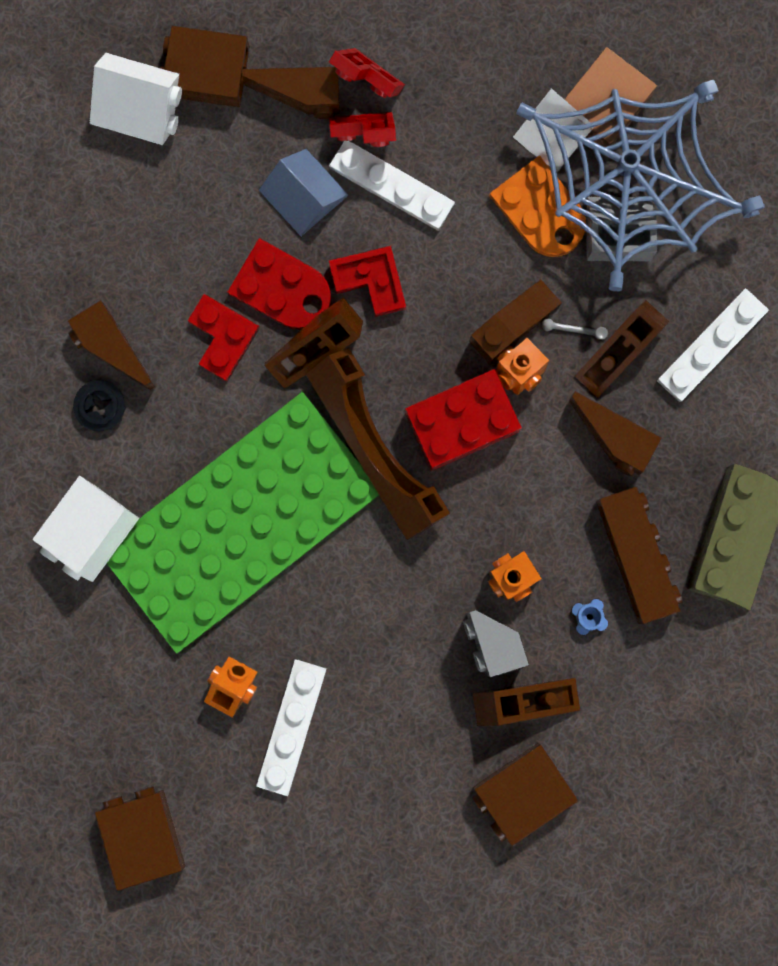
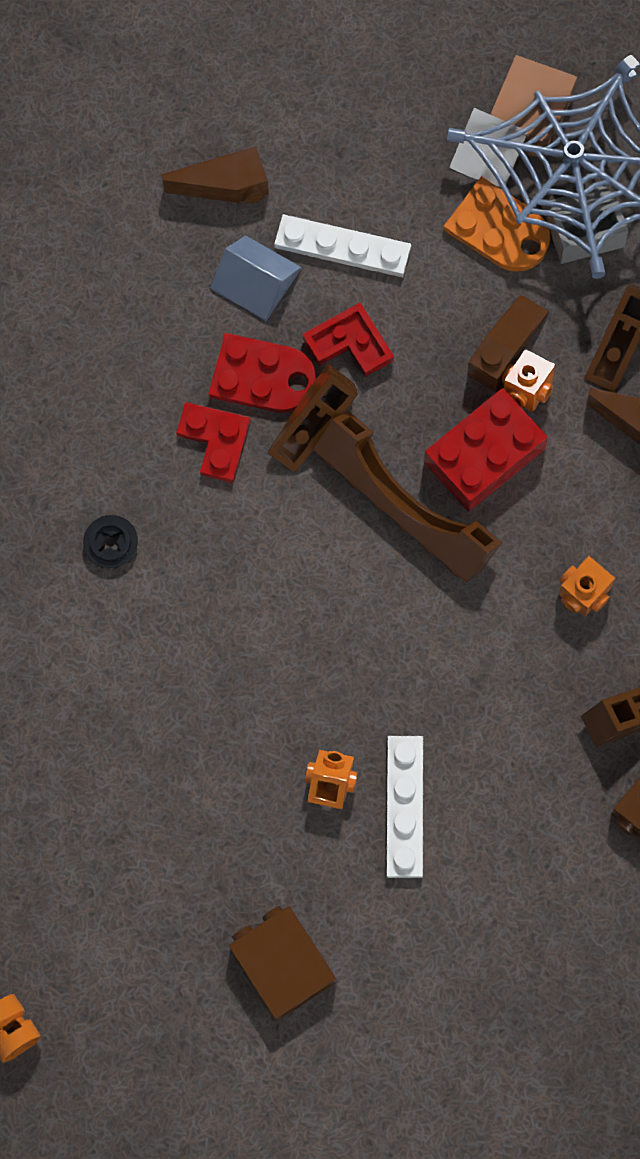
camera: 10 degrees left, 10 degrees down
(84, 530) = (134, 664): white brick -> none
(102, 337) = (102, 477): reddish brown slope -> none
(134, 98) = (62, 231): white brick -> none
(207, 64) = (120, 184): reddish brown brick -> none
(241, 522) = (288, 617): bright green plate -> none
(356, 66) = (272, 141): red plate -> none
(375, 128) = (308, 194): red plate -> none
(497, 645) = (589, 655): light grey slope -> none
(600, 333) = (597, 330): light grey hinge -> none

